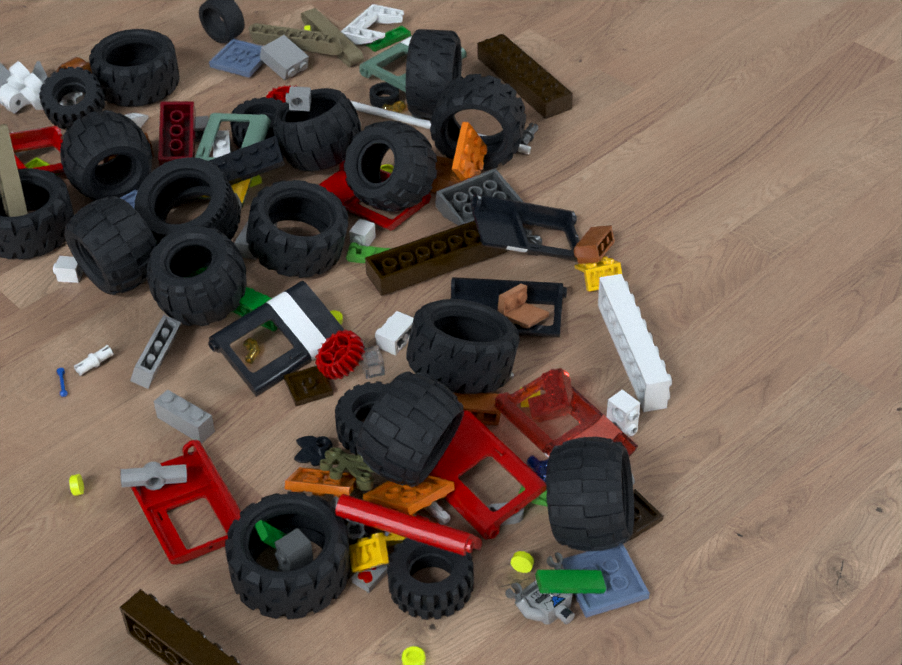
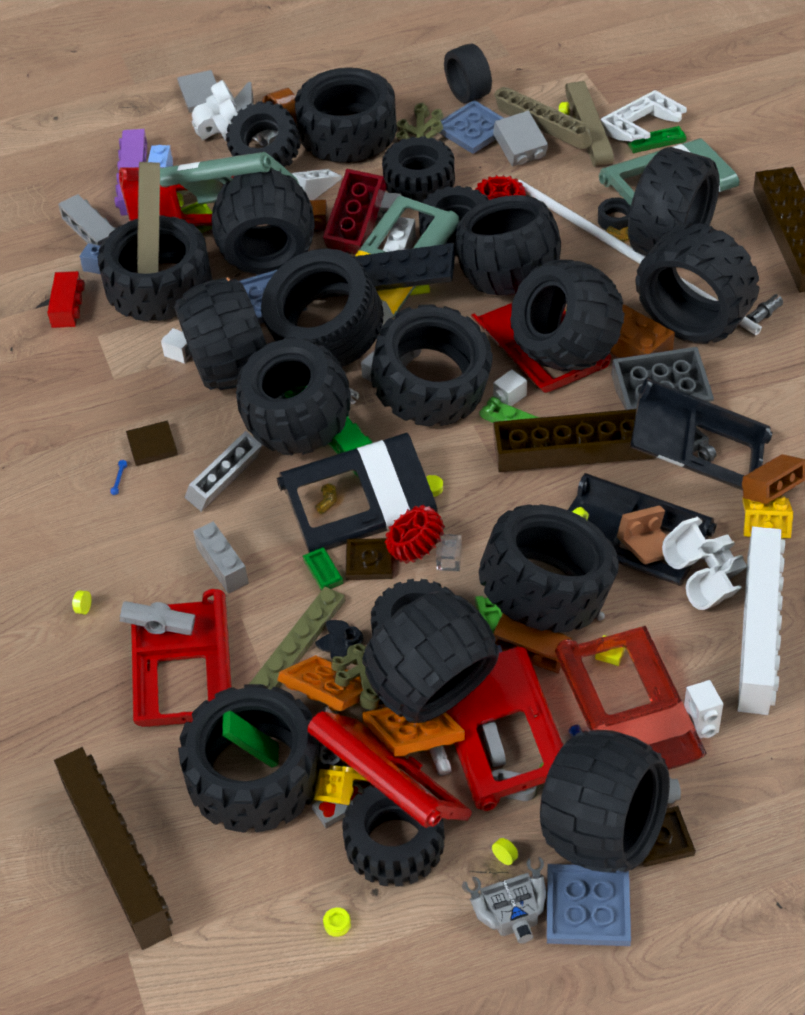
camera: 25 degrees right, 5 degrees up
(45, 134) = (208, 177): none -> sand green piece
(77, 347) = (151, 443): none -> dark brown tile
(93, 360) = (159, 461): white pin -> none
(203, 78) = (421, 112): none -> olive plant
(213, 92) = (418, 167): none -> black tyre
(273, 403) = (322, 569): none -> green tile
(280, 456) = (300, 637): none -> olive plate
(293, 551) = (249, 759): dark grey brick -> none
(301, 104) = (493, 204): light grey brick -> none
(394, 333) = (480, 524): white brick -> none
(469, 153) = (669, 321): orange plate -> none
(476, 486) = (493, 744): none -> light grey beam
(557, 400) = (634, 663): clear red brick -> none
(570, 581) = (541, 896): green tile -> none
(585, 327) = (708, 586): none -> white piece

